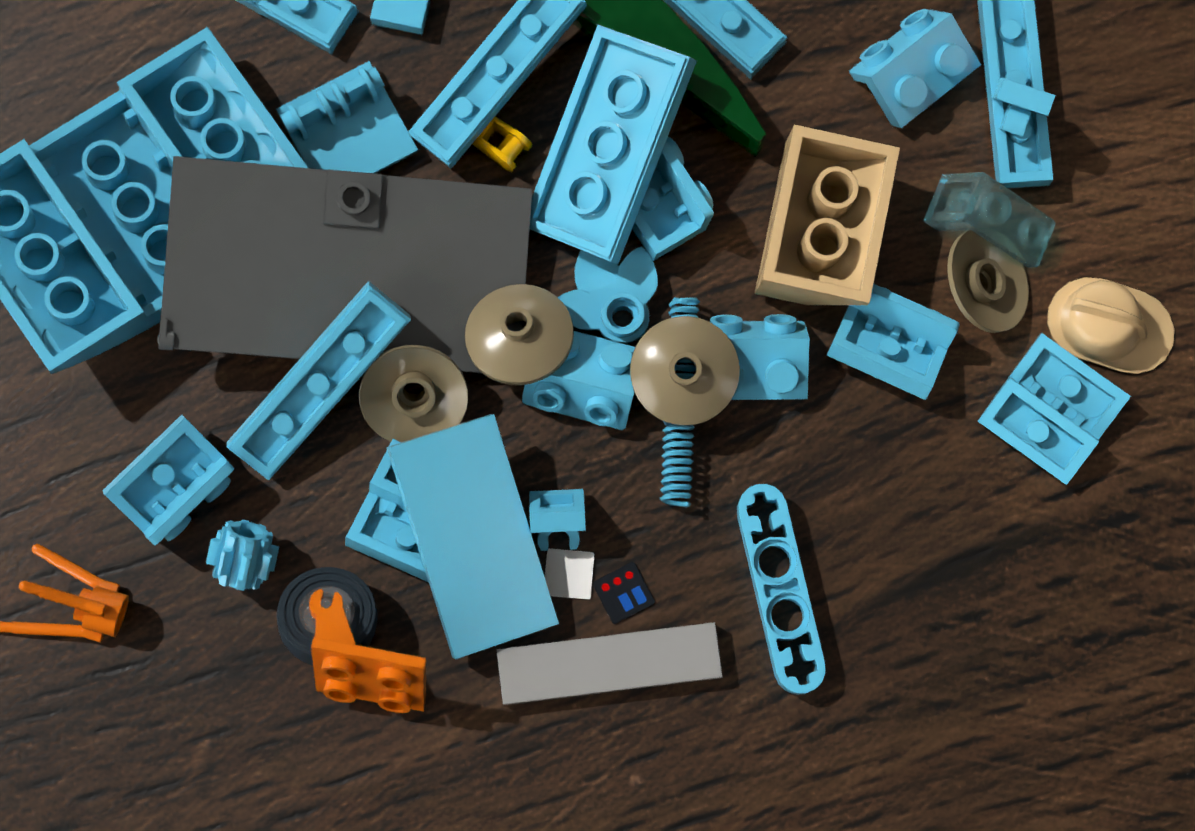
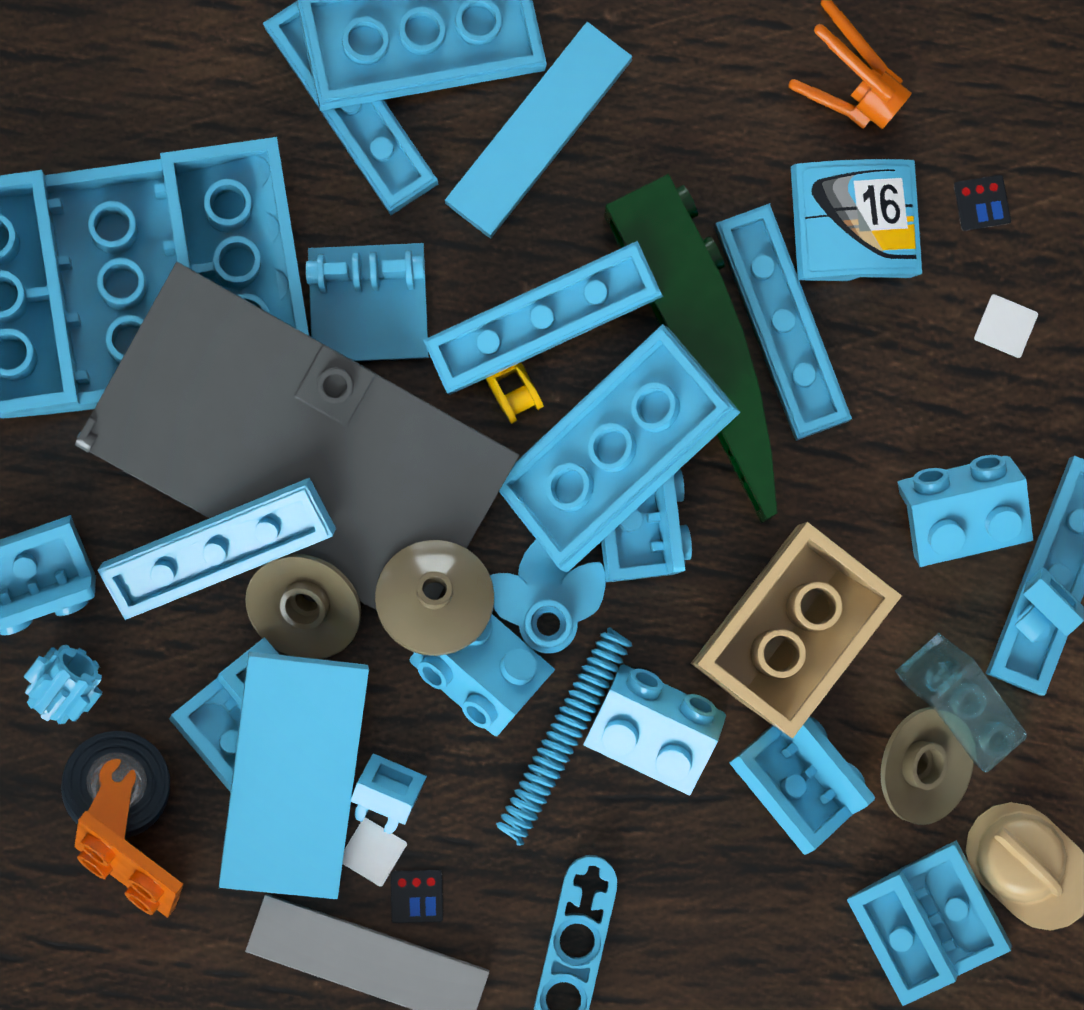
camera: 25 degrees right, 5 degrees up
(679, 399) = (582, 682): dark tan dish -> none

